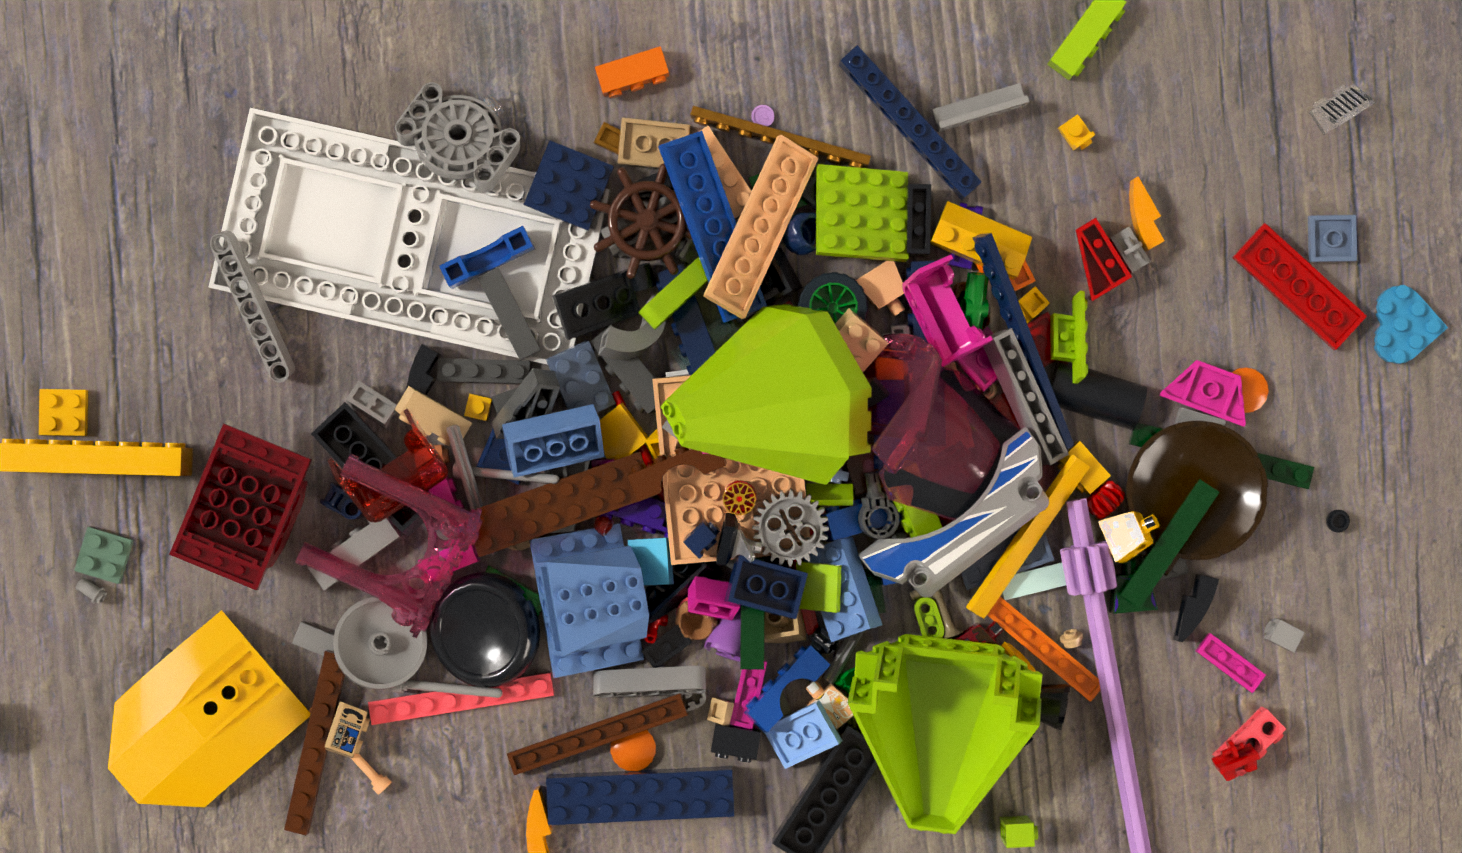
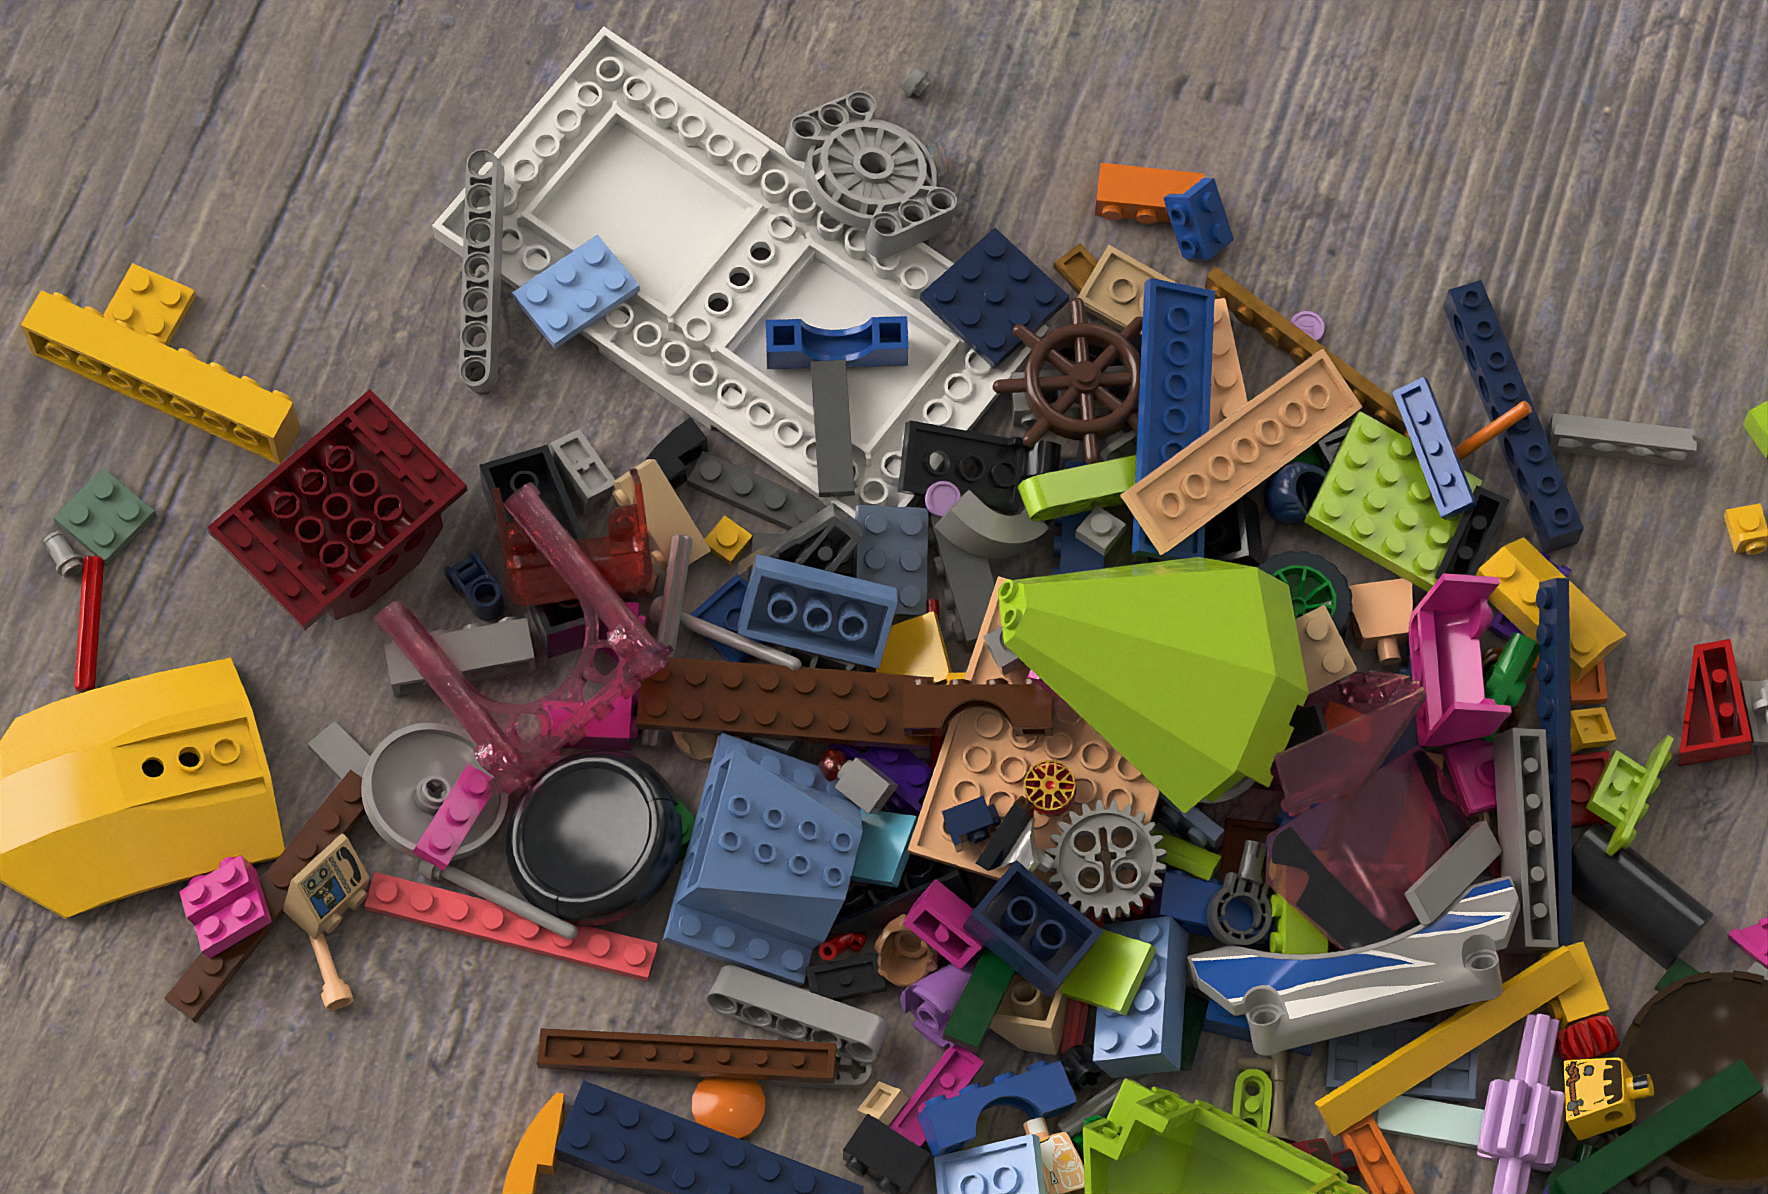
camera: 25 degrees right, 20 degrees down
(128, 626) = (89, 624): none -> red axle
(292, 764) = (225, 905): none -> dark pink plate
(315, 293) = (576, 291): none -> light blue plate
(399, 658) = (455, 818): none -> dark pink plate
(457, 57) = (916, 82): none -> light grey plate
(593, 332) = (941, 497): none -> lavender piece
(628, 532) = (865, 785): none -> light grey brick
(671, 78) = (1199, 220): none -> blue bracket
(697, 313) = (1100, 530): none -> light grey plate
(873, 171) = (1434, 448): none -> plate
(900, 145) = (1493, 429): none -> orange bar
(993, 442) = (1453, 872): none -> light grey tile

